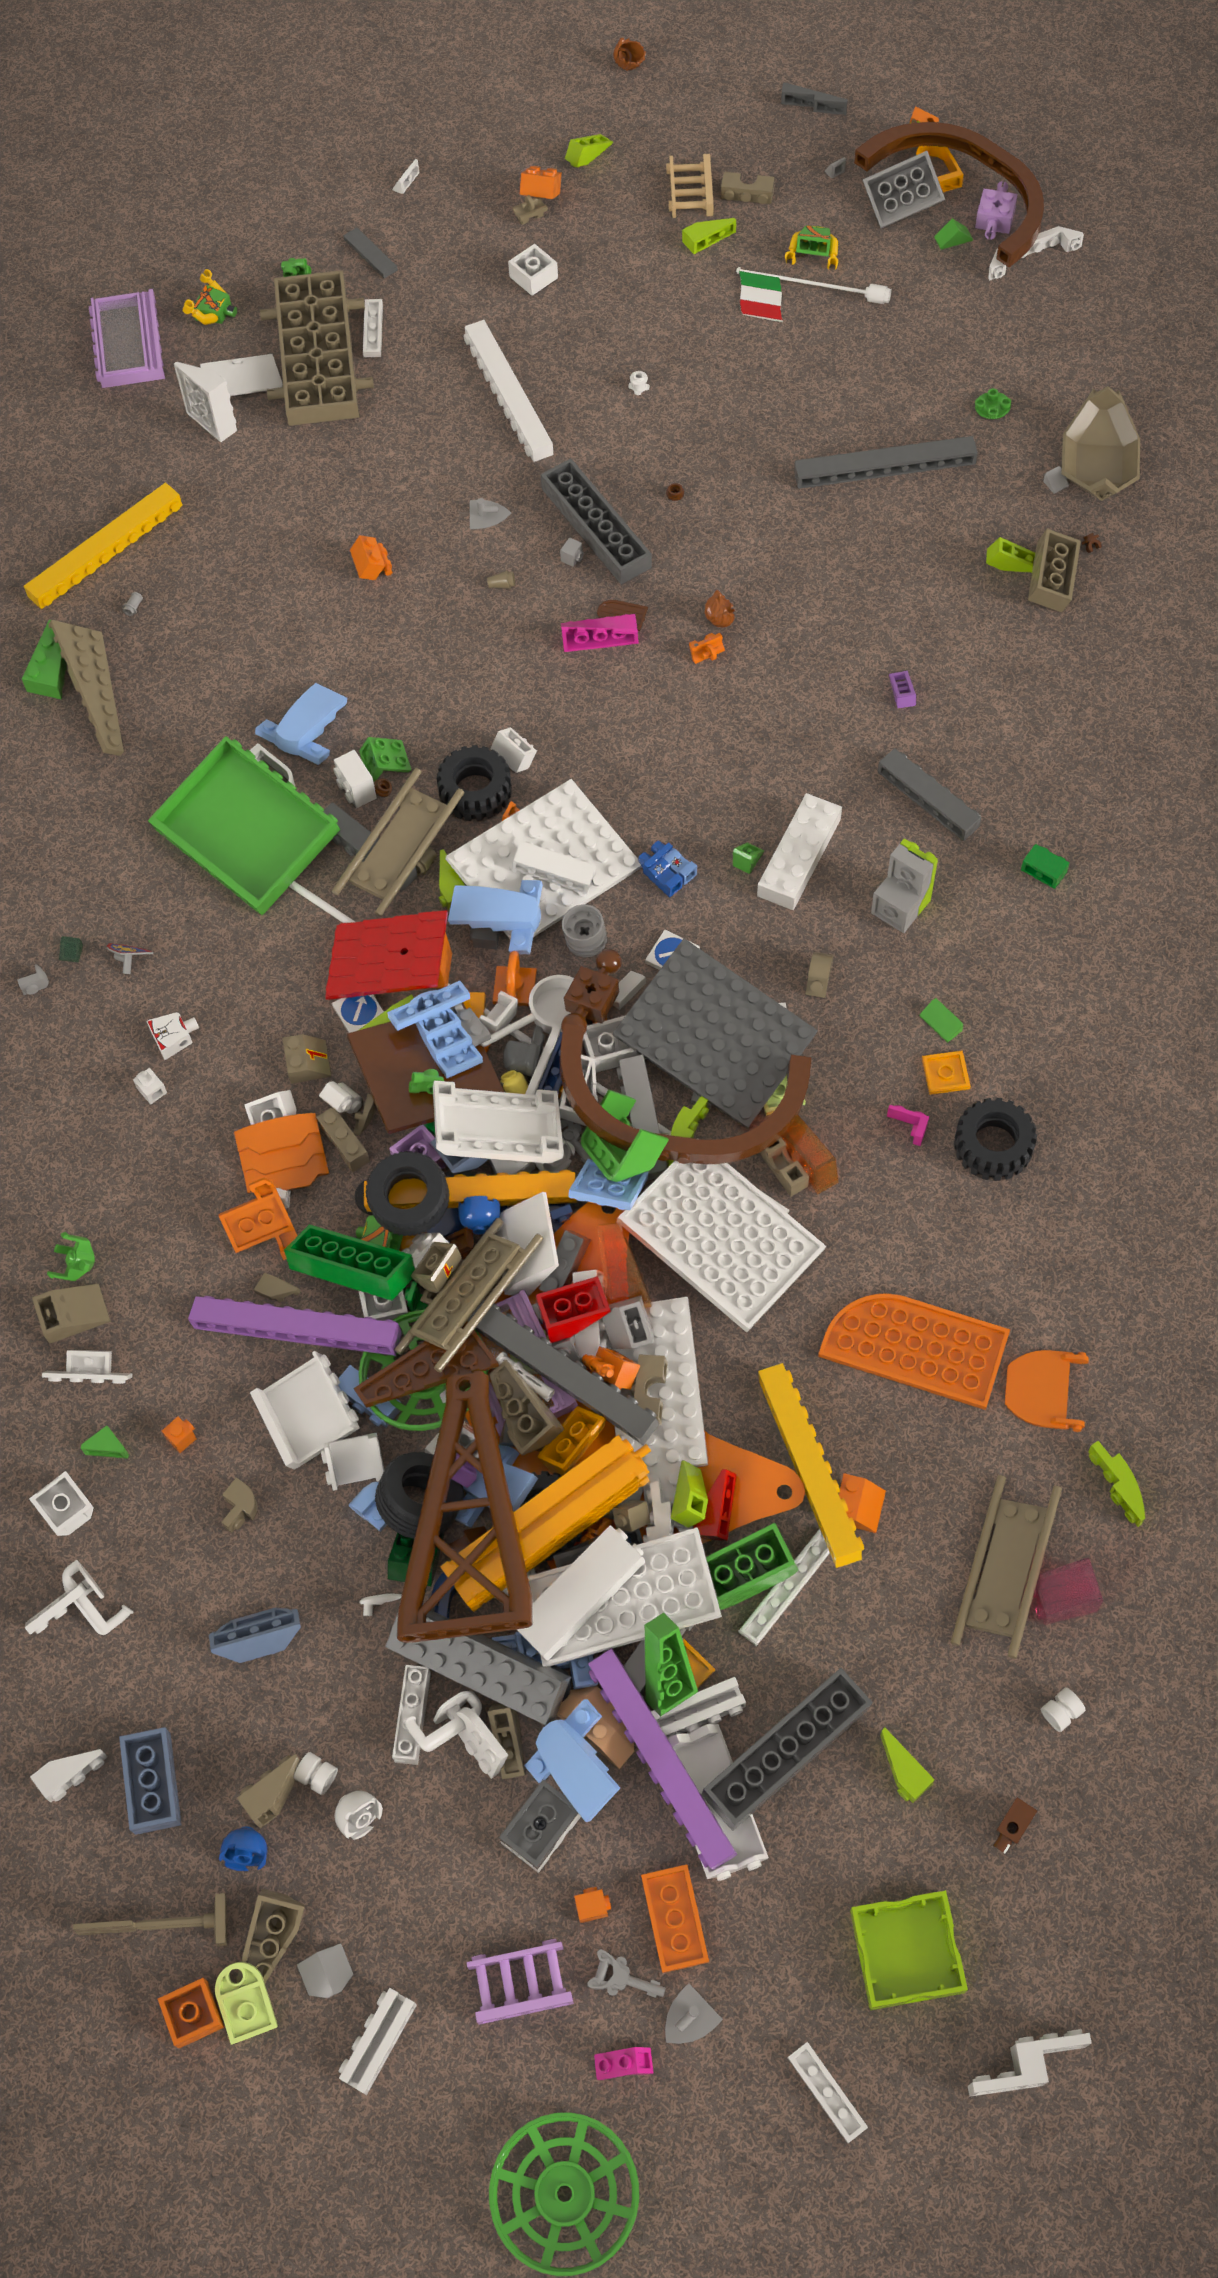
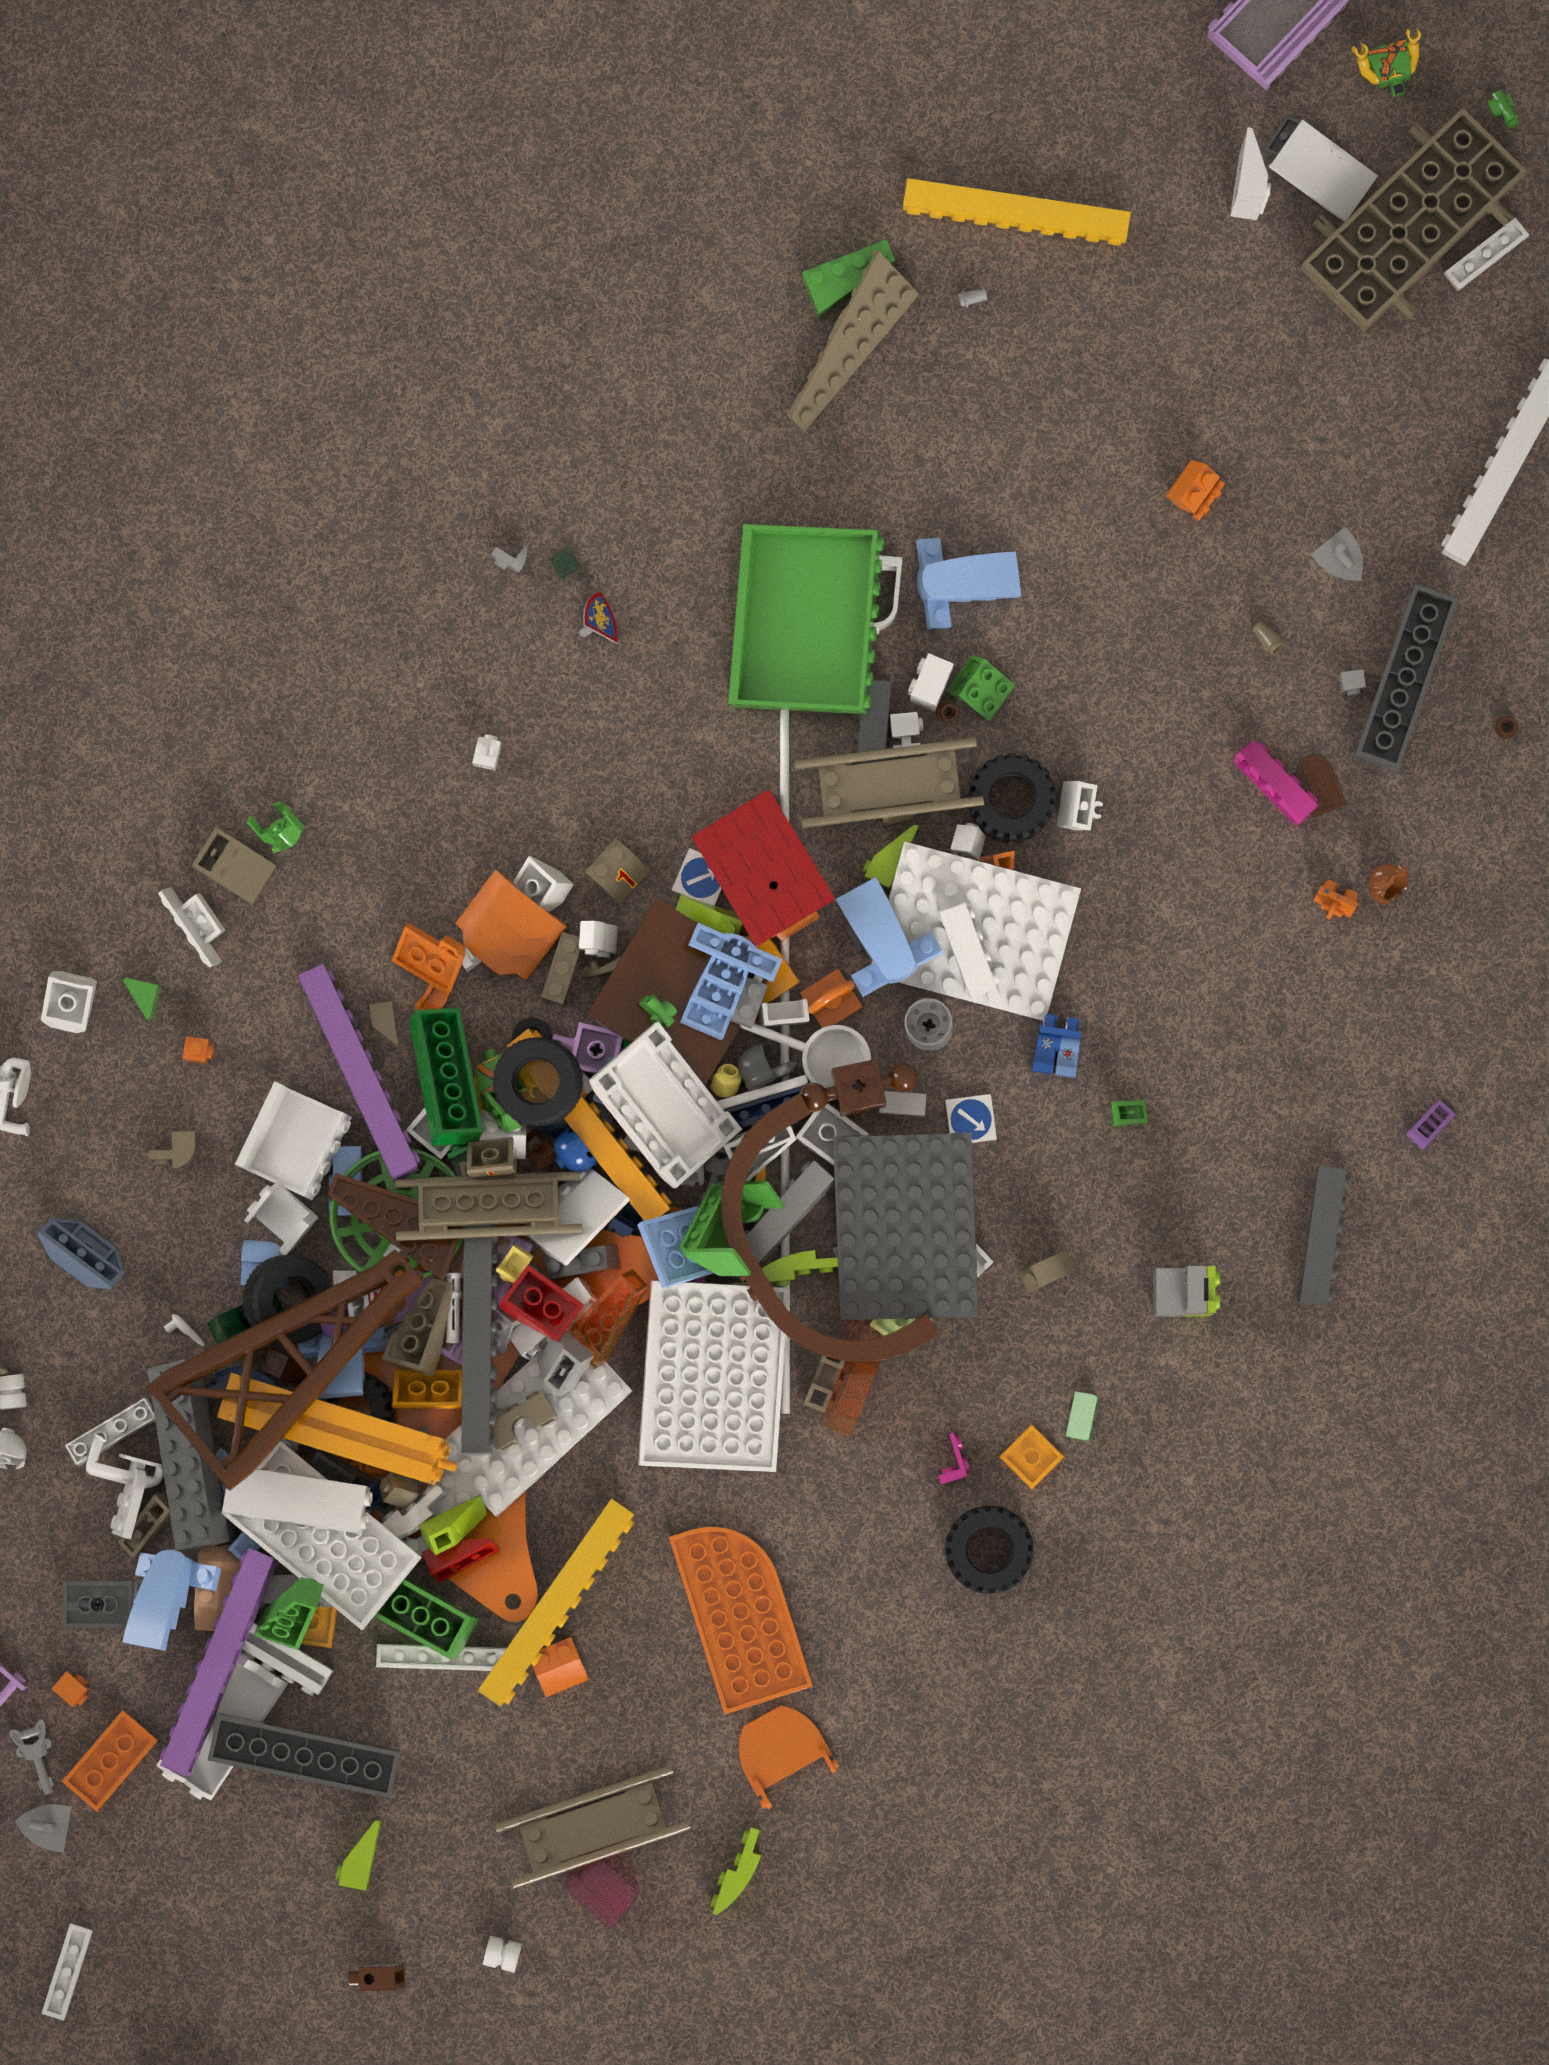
camera: 50 degrees right, 20 degrees up
(172, 1033) = (551, 729): white torso -> none
(370, 815) = (904, 727): none -> white brick
(408, 1240) = (503, 1119): none -> bright green slope
(477, 825) = (968, 841): none -> white brick
(527, 1307) = (514, 1264): none -> light yellow bracket
(612, 1367) = (515, 1376): orange brick -> none
(799, 851) = (1166, 1159): white brick -> none
(908, 1950) = (218, 1960): lime tile -> none
(1045, 866) = (1321, 1400): green brick -> none

